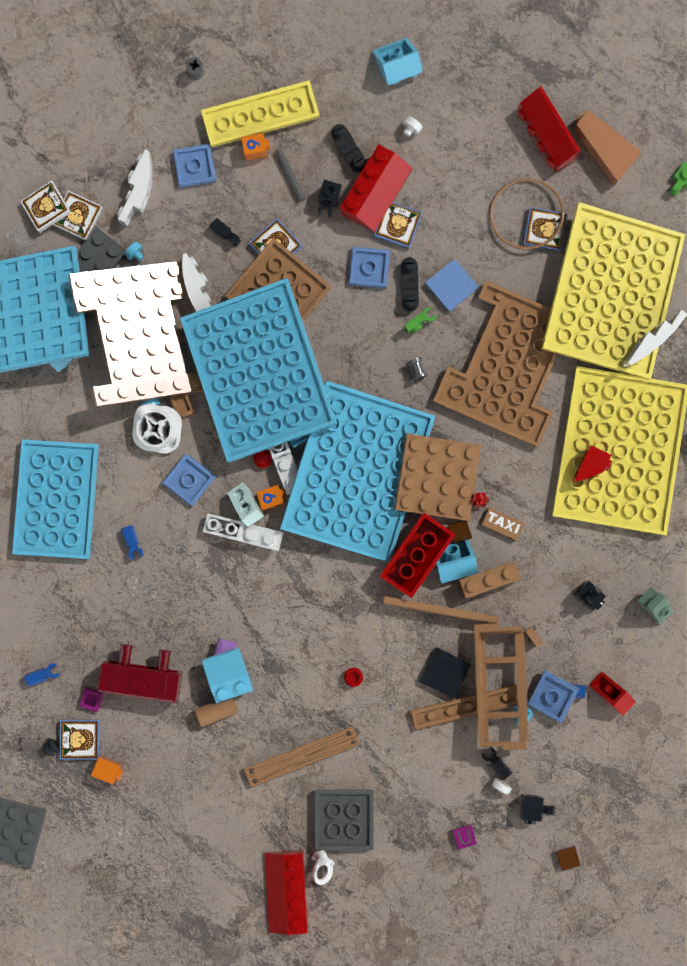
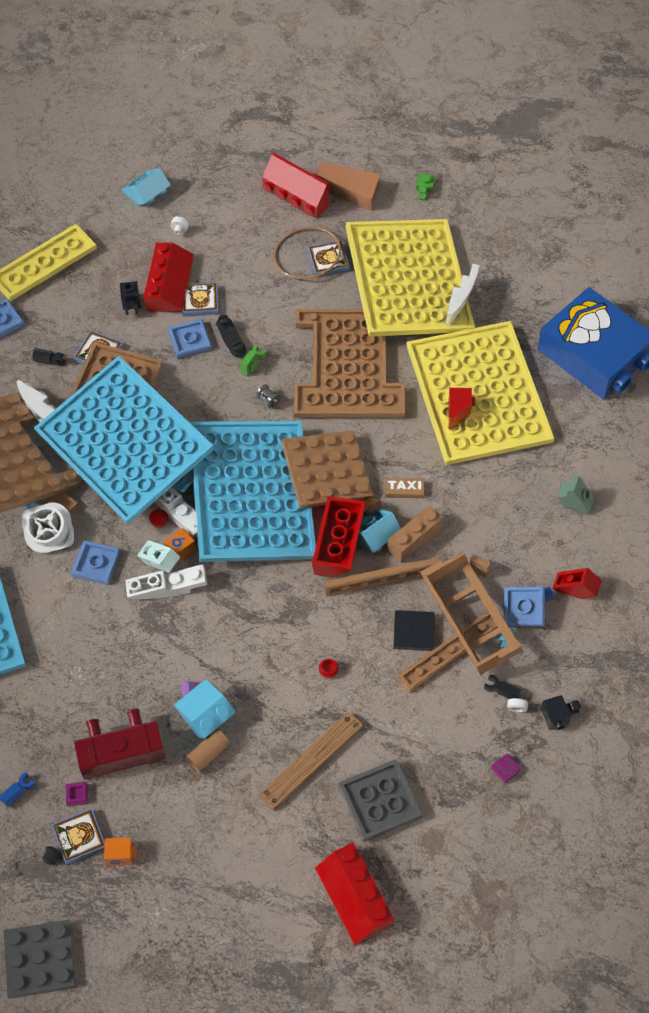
camera: 20 degrees left, 25 degrees down
(131, 541) = (61, 634): blue bar -> none
(255, 146) = (48, 285): orange brick -> none
(290, 175) = (89, 297): dark grey bar -> none
(322, 859) = (376, 845): white piece -> none
(348, 147) = (130, 259): black piece -> none
(451, 285) = (268, 325): medium blue tile -> none
(479, 499) = (374, 474): red plate -> none
(568, 858) = (614, 746): reddish brown tile -> none
(590, 596) = (513, 511): black brick -> none

